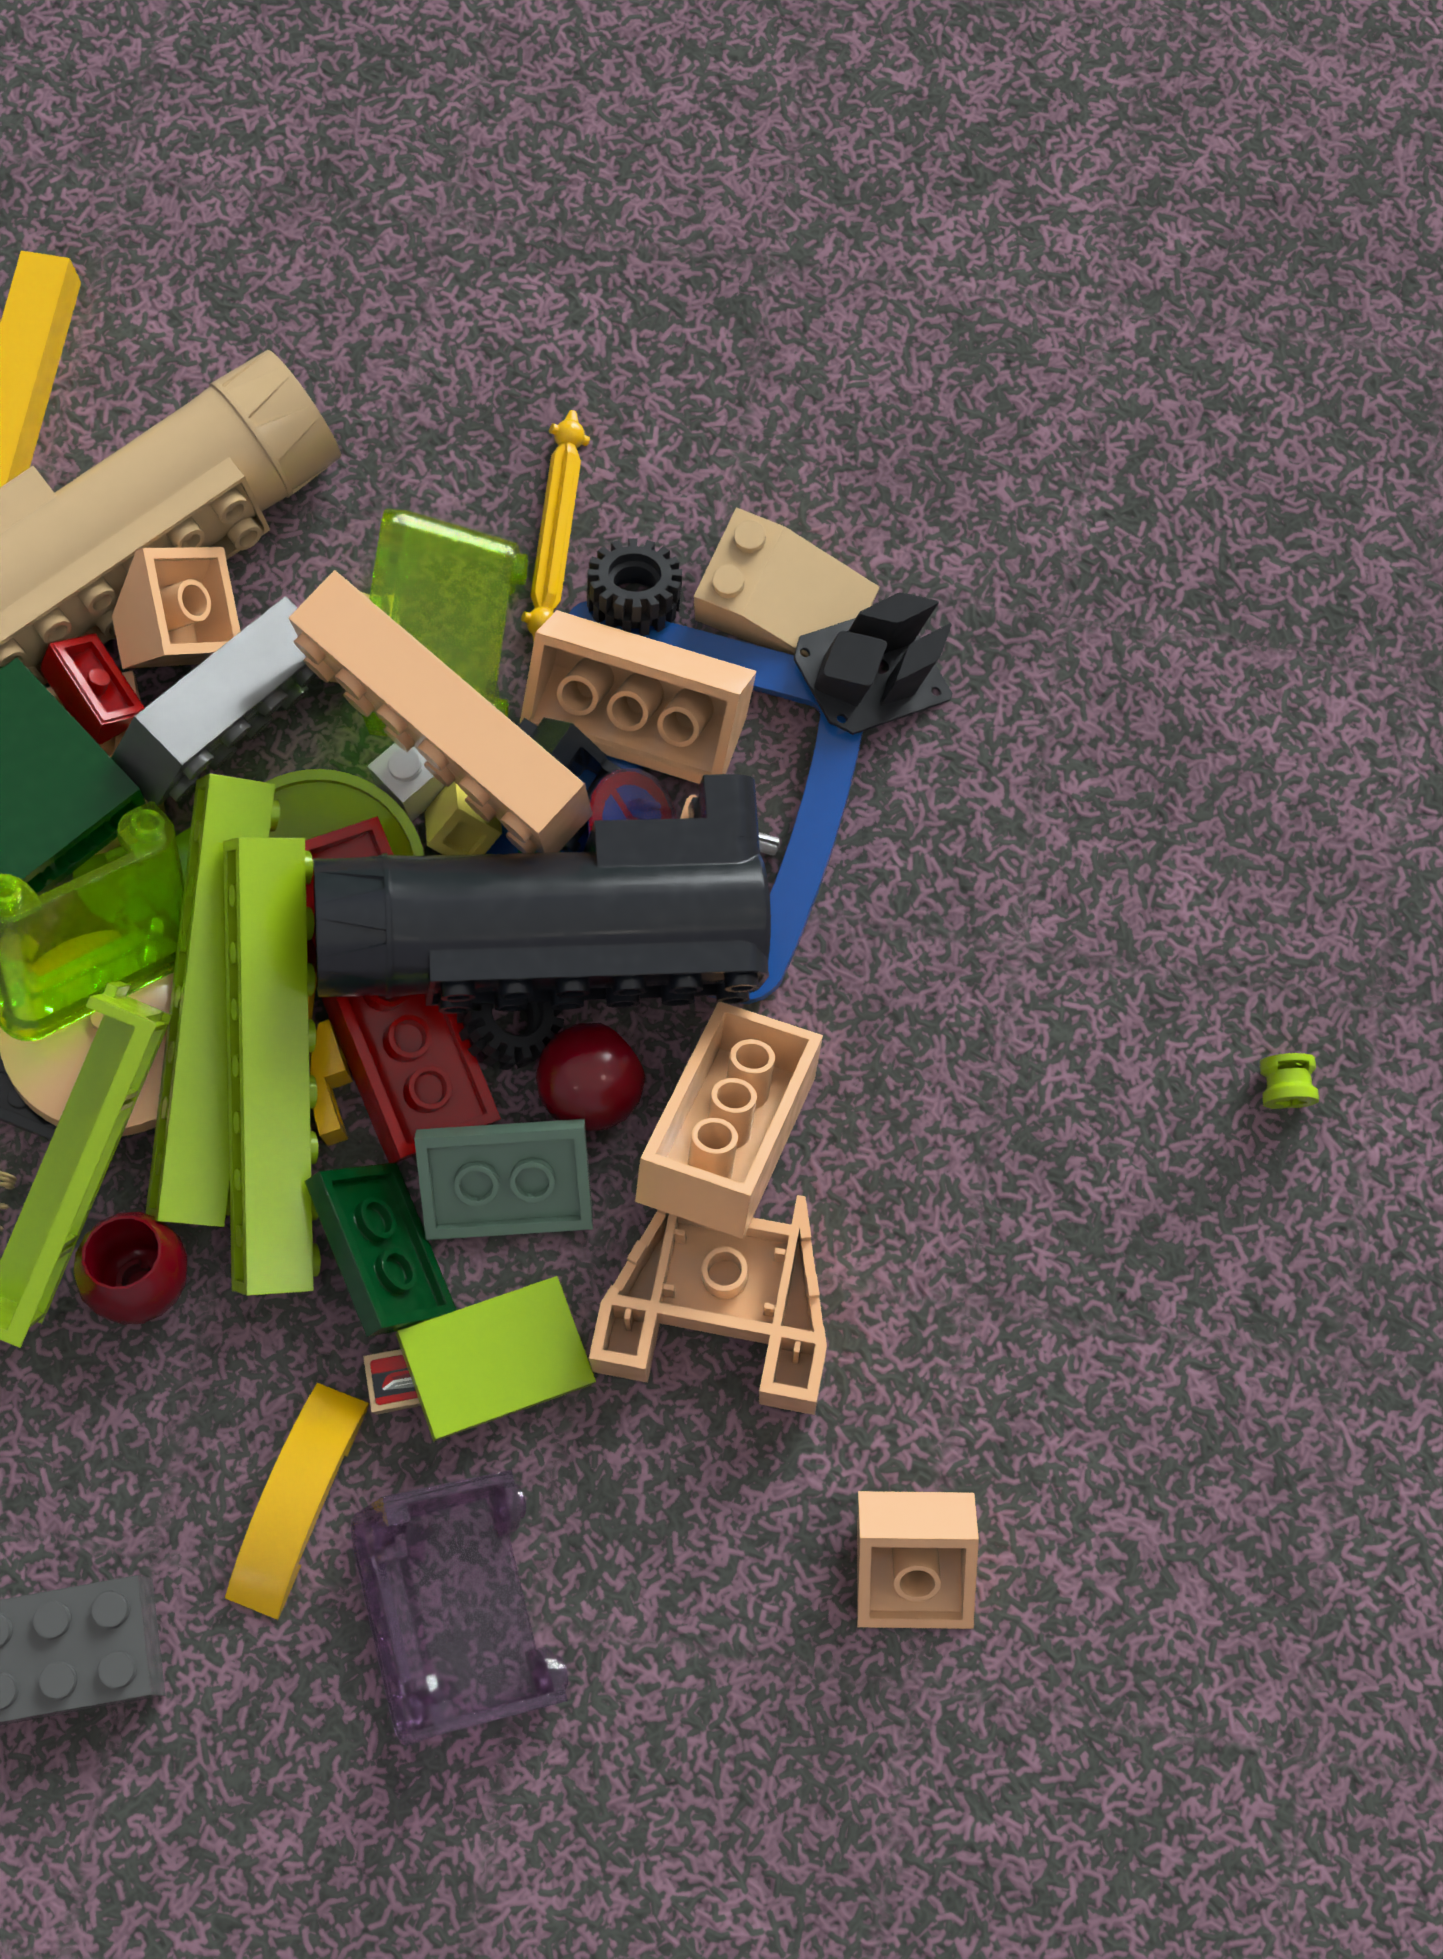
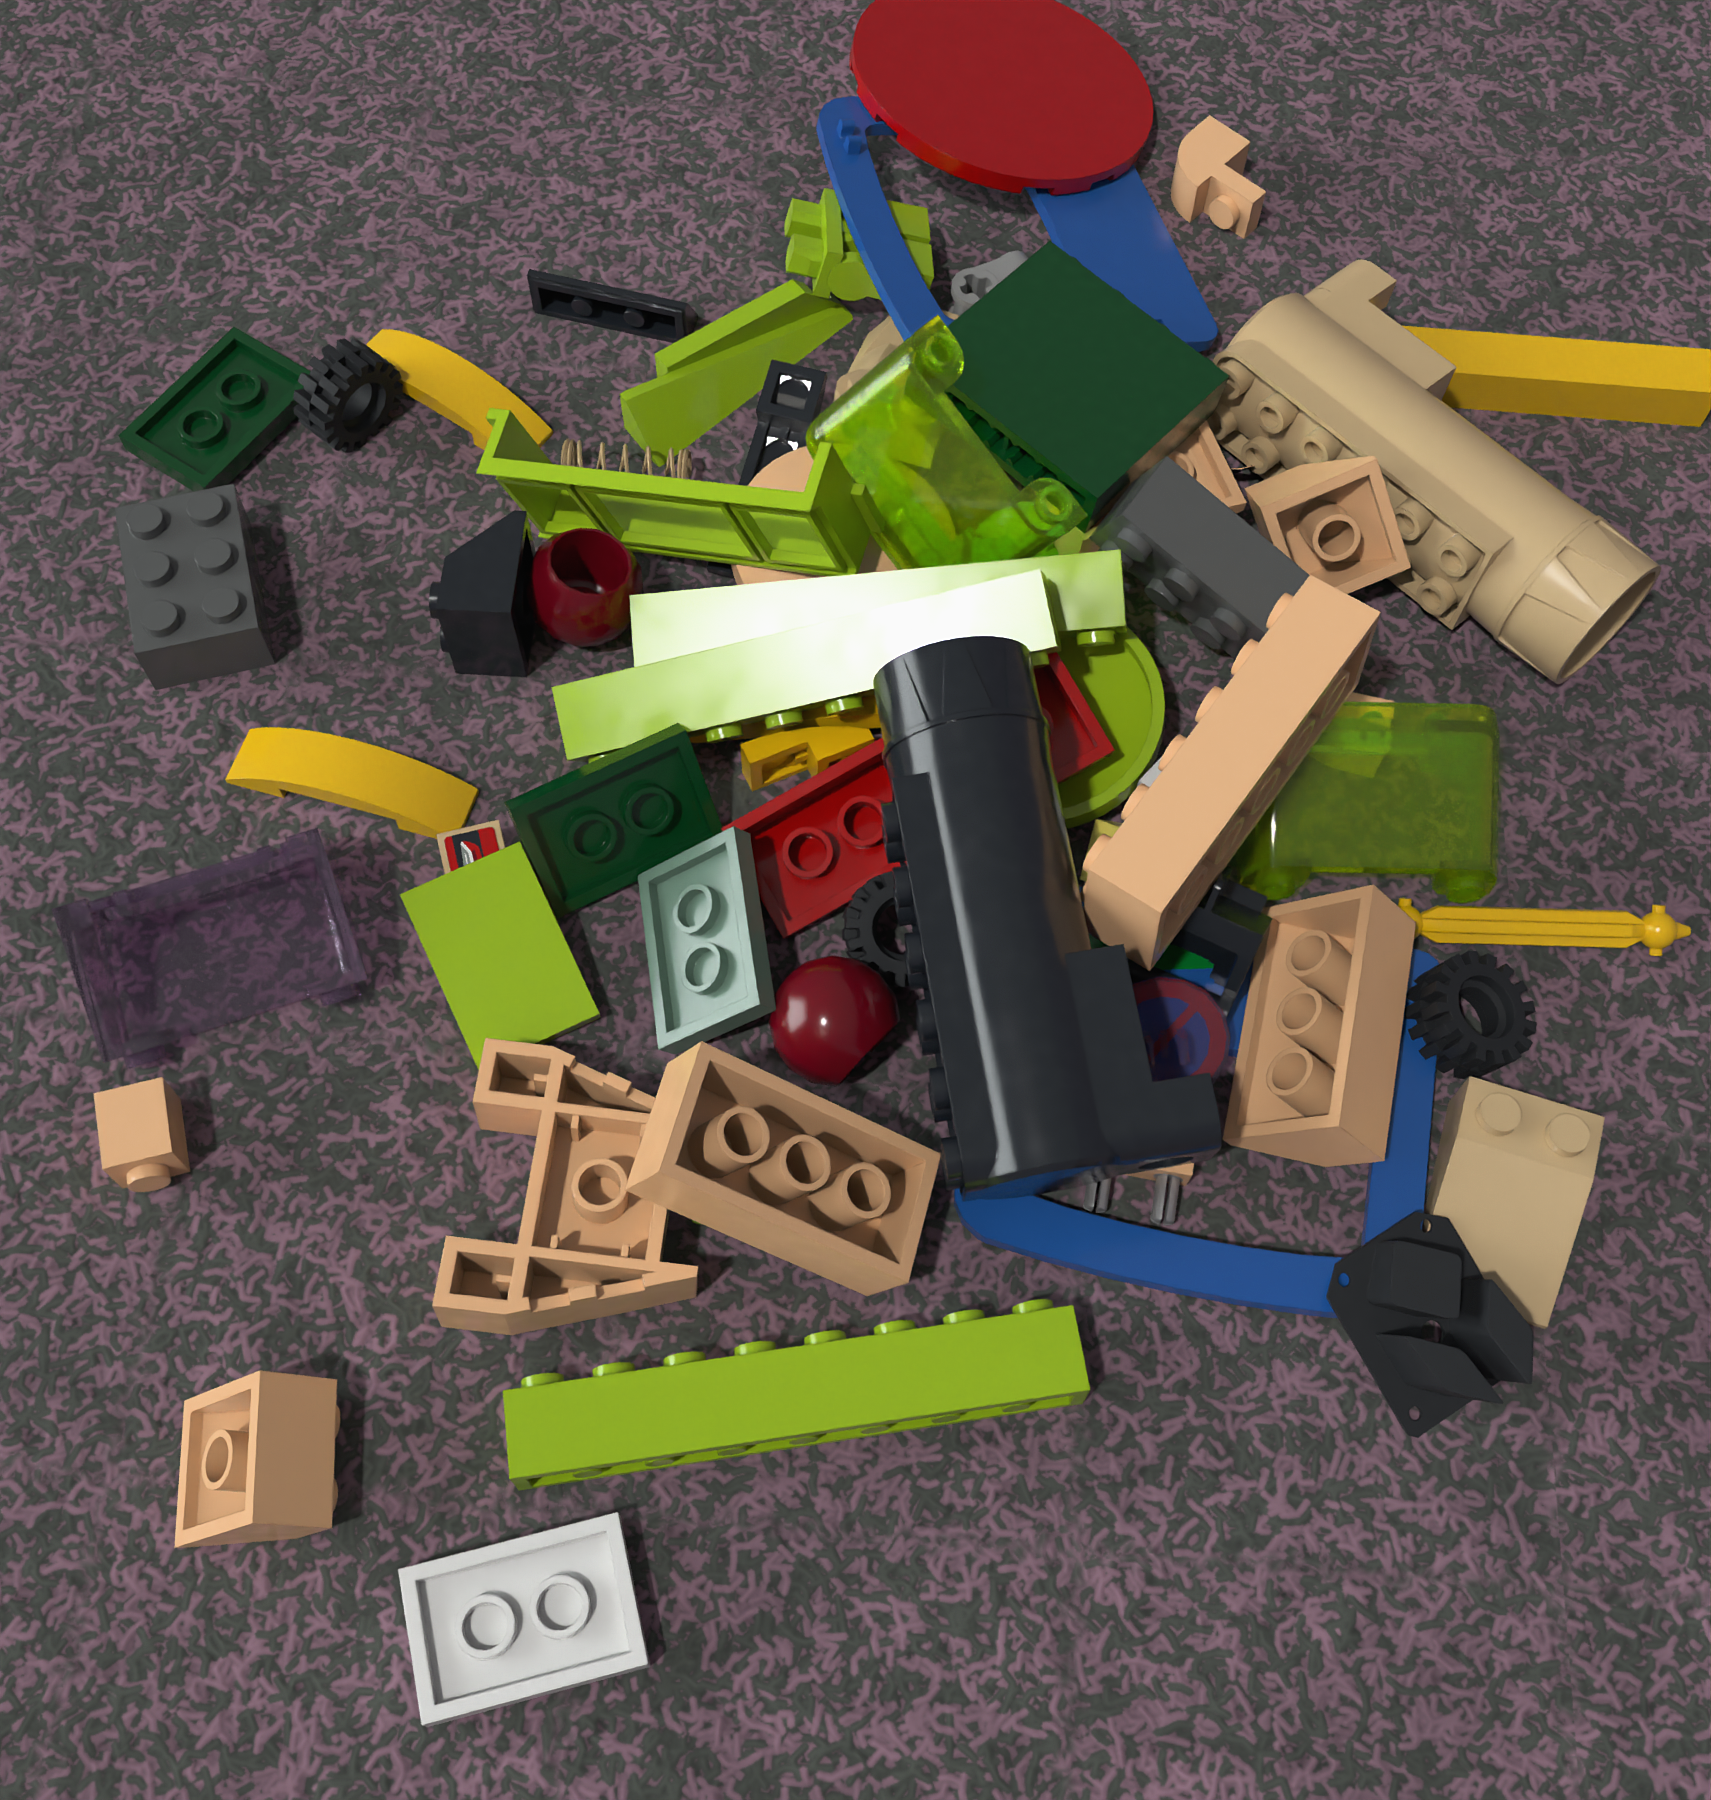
camera: 80 degrees right, 10 degrees down
(91, 686) = (1230, 456): red slope -> none
(138, 1354) = (485, 601): none -> black slope
(632, 1668) = (141, 1135): none -> light nougat brick
(895, 1138) = (793, 1395): none -> lime brick
(1045, 1350) = (522, 1619): none -> white plate

